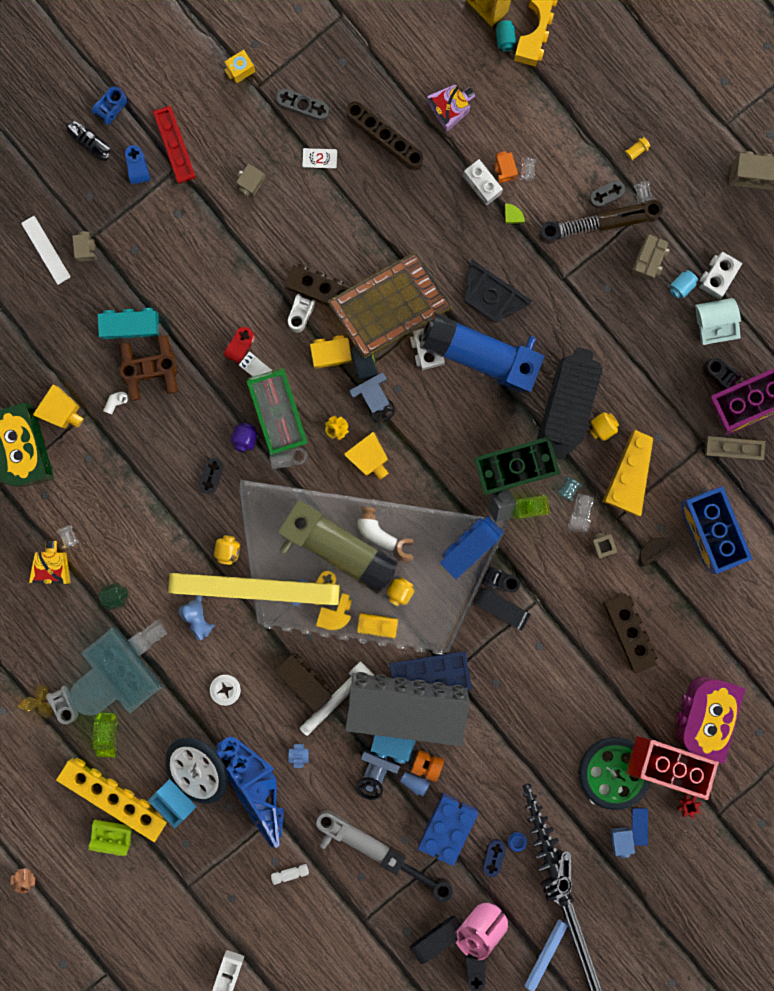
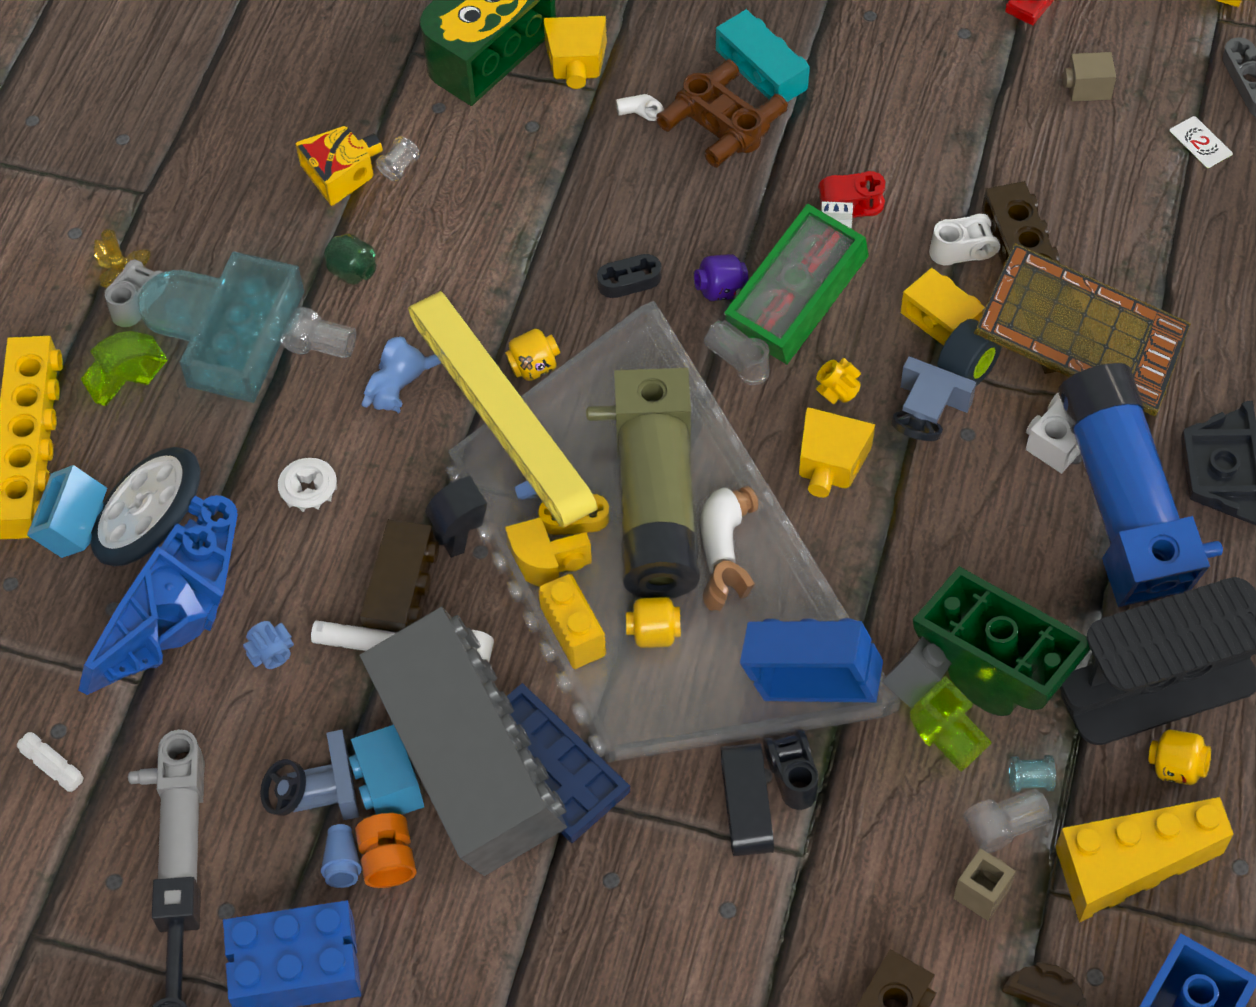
camera: 55 degrees right, 30 degrees down
(294, 641) = (456, 512): none -> black brick

